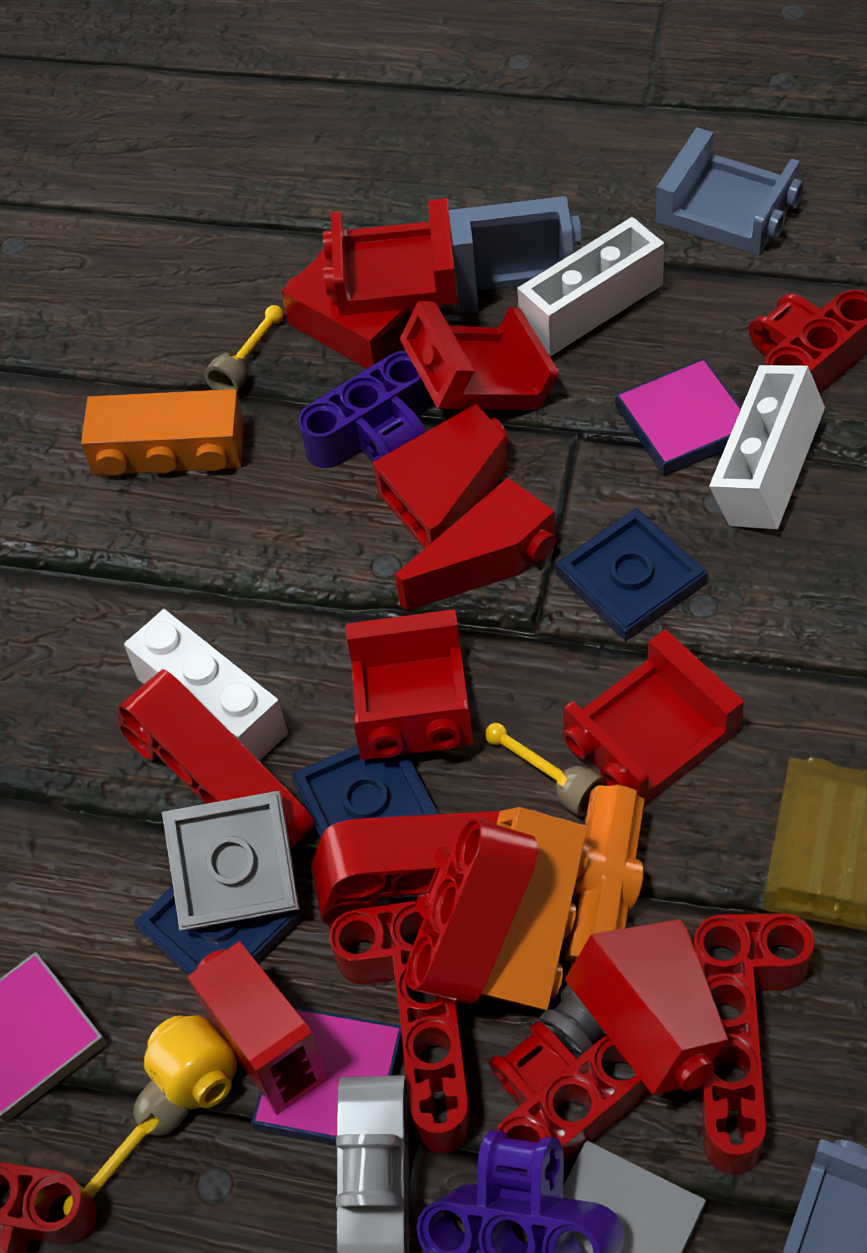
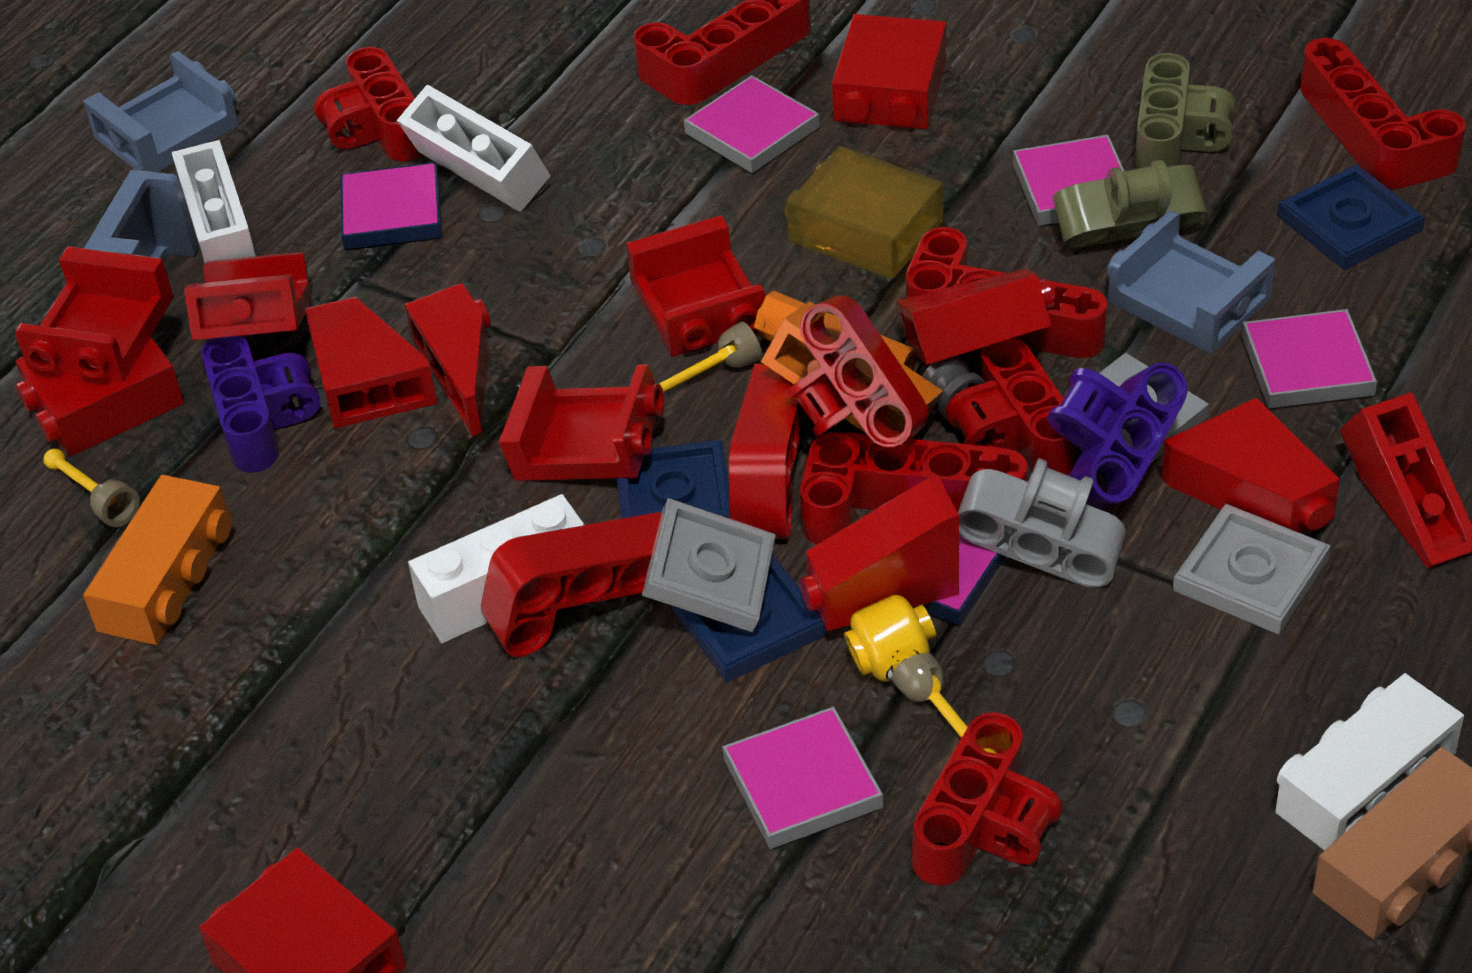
camera: 75 degrees left, 10 degrees down
(631, 574) = (536, 276): dark blue tile -> none

